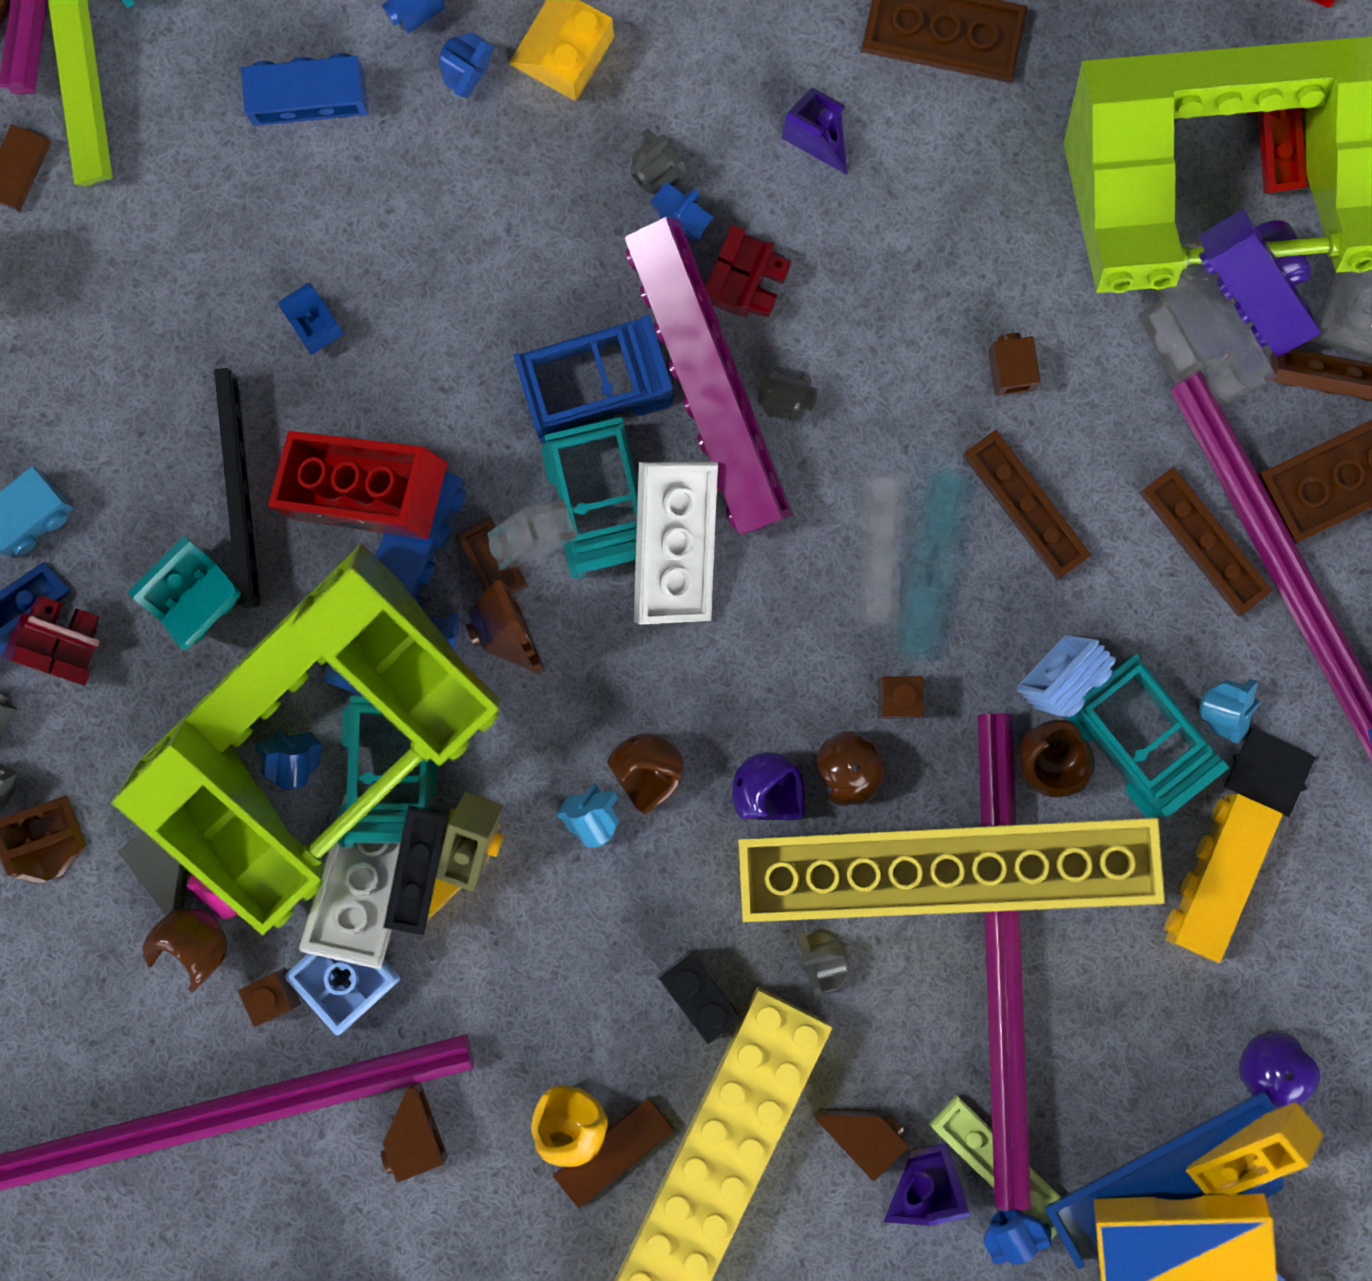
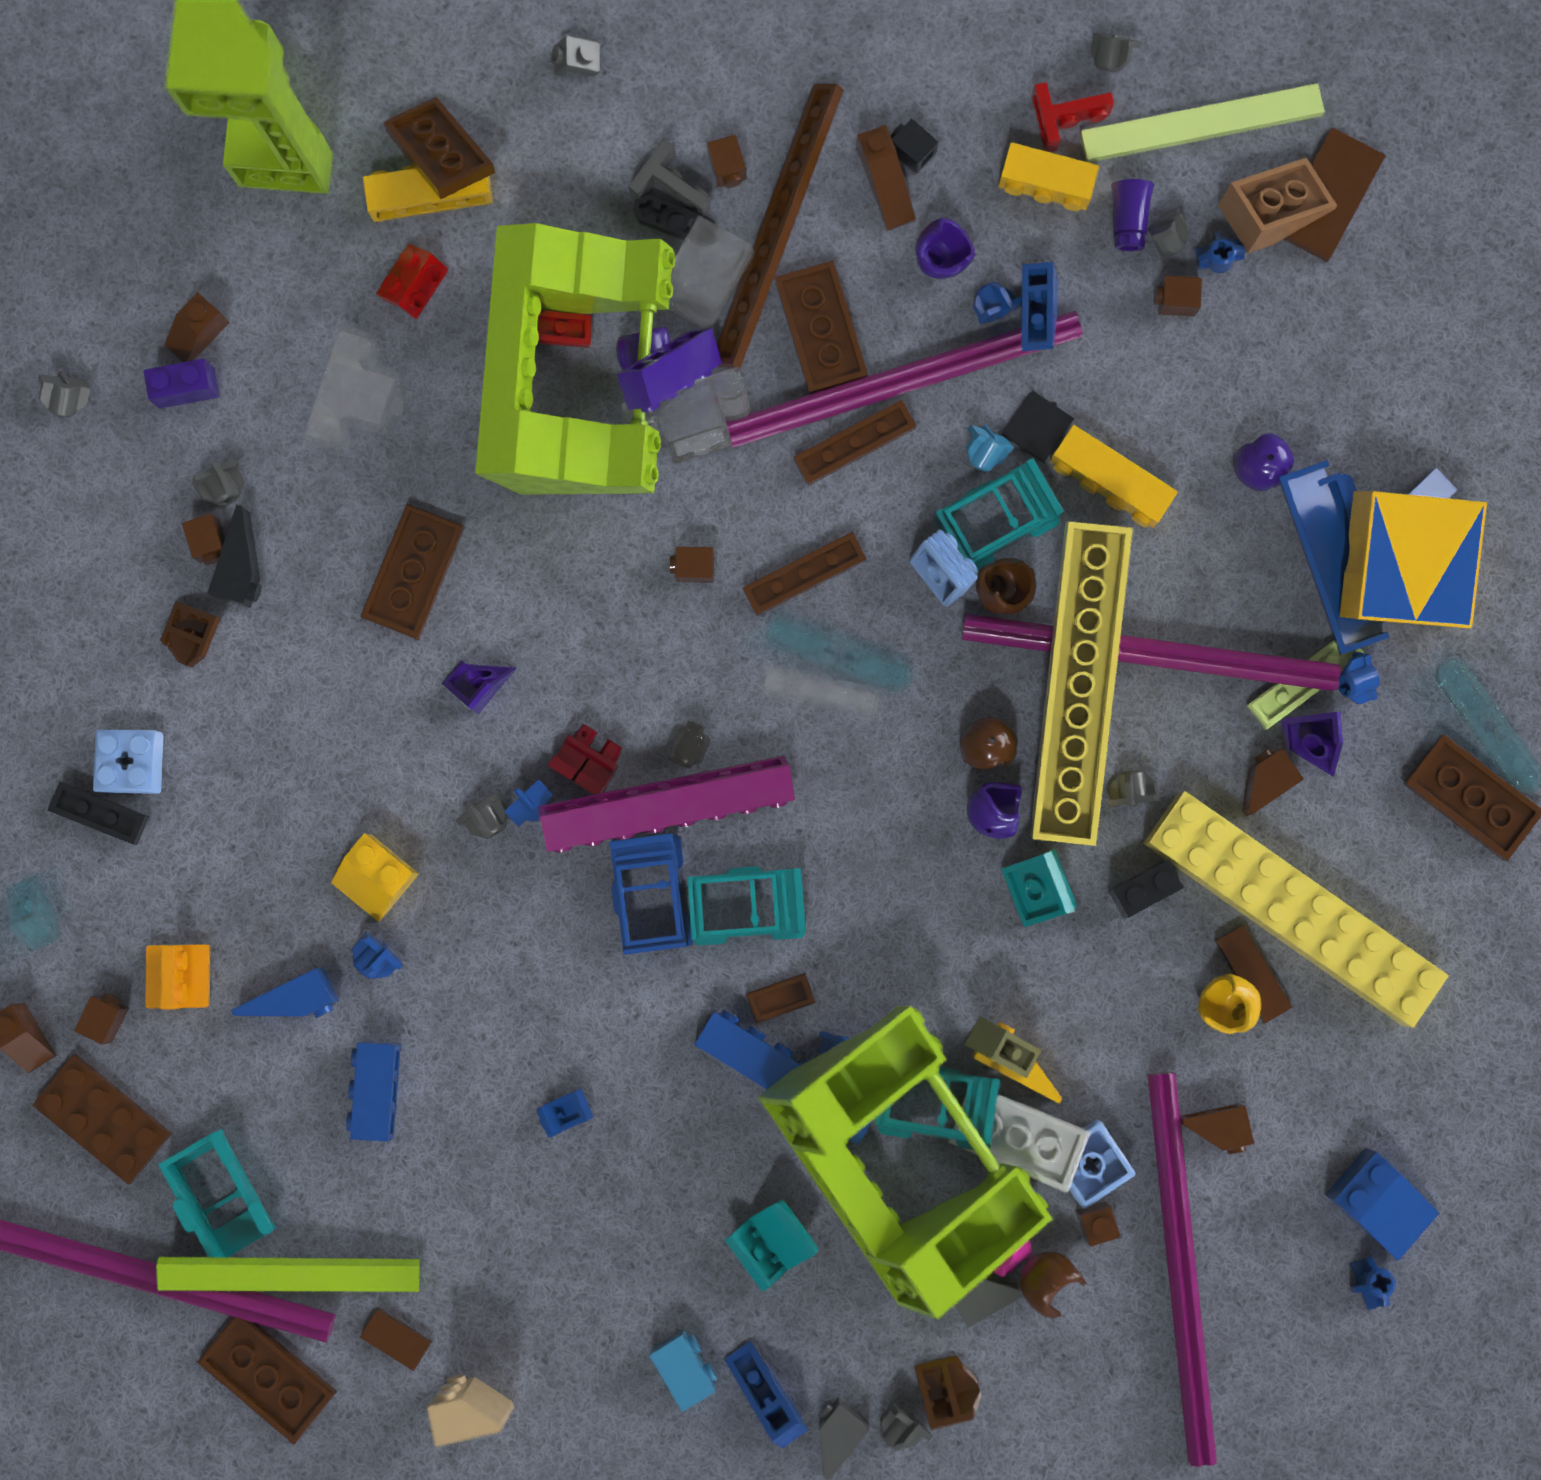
camera: 75 degrees left, 0 degrees up
(50, 647) = (798, 1359): dark red hips -> none
(237, 488) = (690, 1192): black tile -> none
(289, 759) = (913, 1181): blue piece -> none
(358, 484) = (709, 1093): red brick -> none
(416, 870) = (1019, 1091): black tile -> none
(502, 629) = (842, 995): reddish brown wedge -> none
(531, 534) = (770, 962): clear brick -> none
(590, 816) = (994, 951): dark azure piece -> none
(647, 769) = (966, 900): reddish brown piece -> none
(675, 541) = (793, 850): white tile -> none
(678, 862) = (1039, 888): none -> teal bracket
(900, 697) = (940, 696): reddish brown brick -> none
(1258, 1153) = (1324, 490): yellow slope -> none

